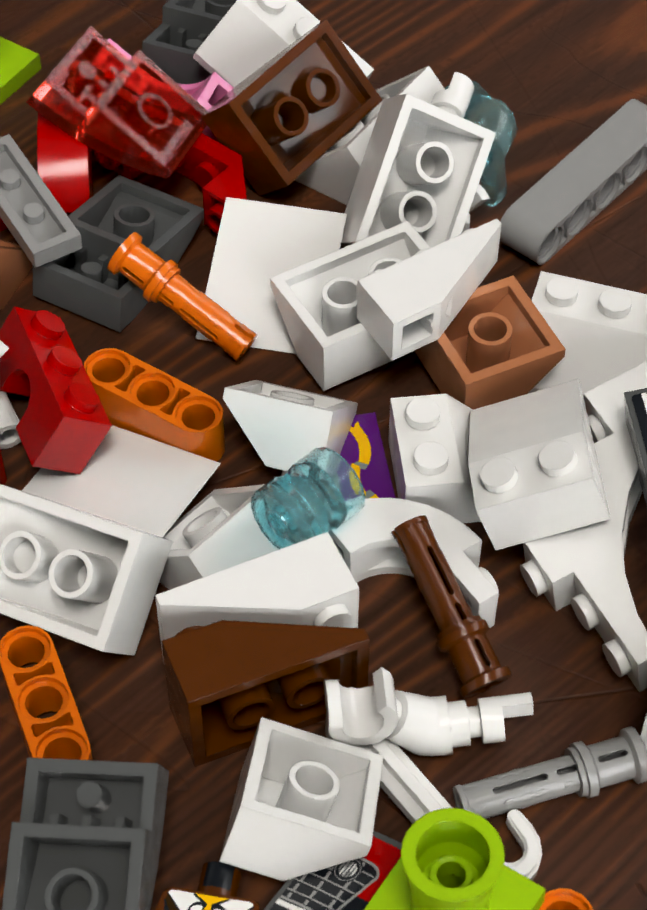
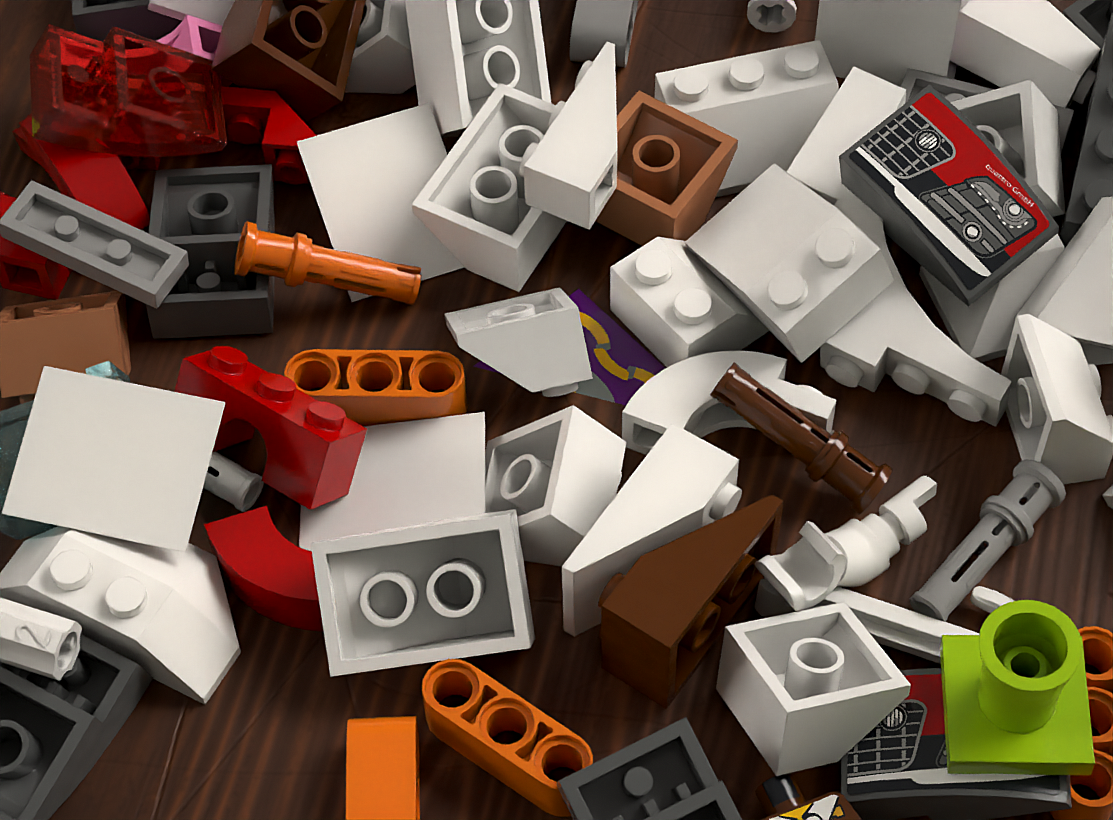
camera: 30 degrees left, 5 degrees up
(309, 499) = (623, 404): clear light blue wheel -> none

